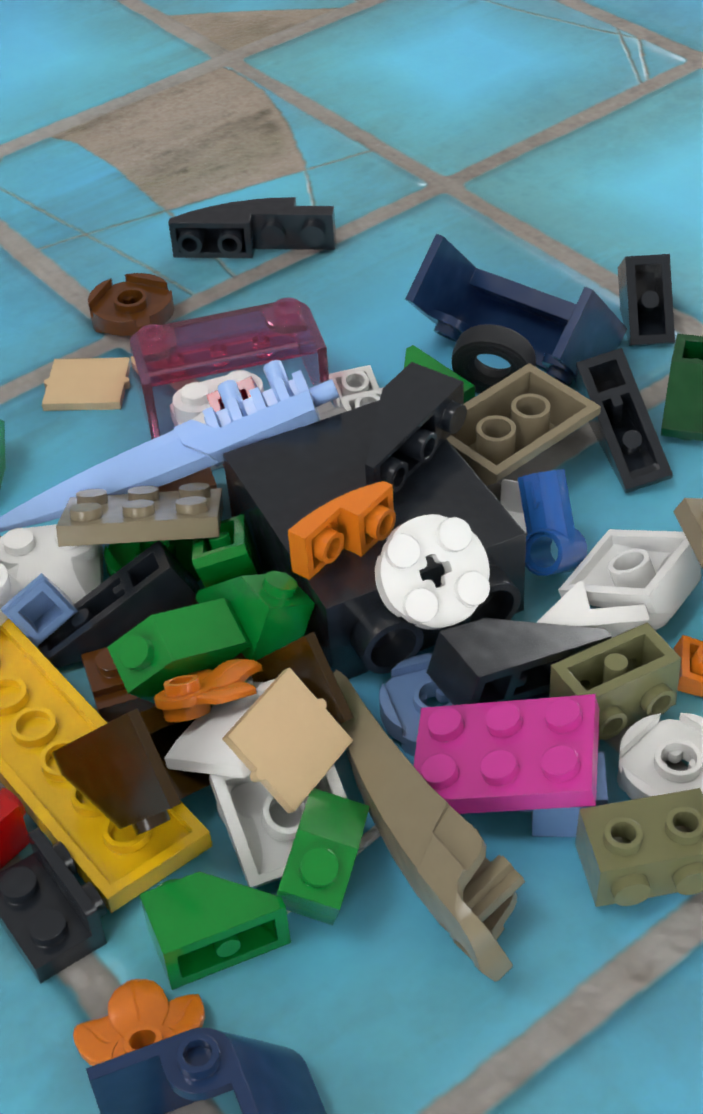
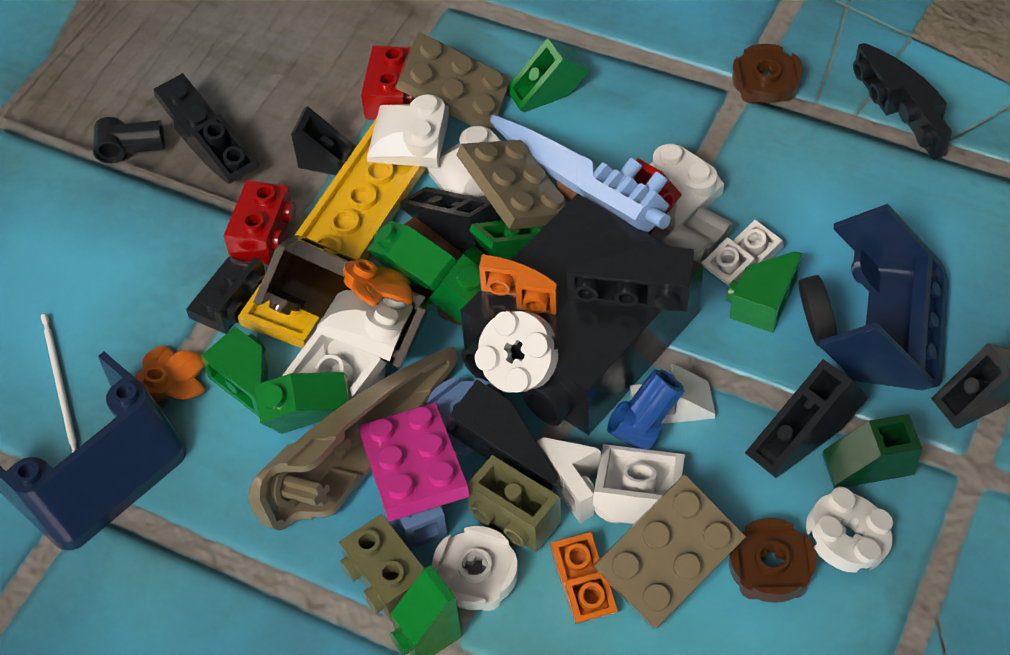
camera: 65 degrees right, 10 degrees up
(39, 609) = (427, 176): medium blue slope -> none
(86, 384) = (673, 94): tan piece -> none
(224, 344) = (779, 172): clear pink windscreen -> none
(288, 740) = (353, 340): tan piece -> none
(518, 422) = (738, 347): dark tan slope -> none

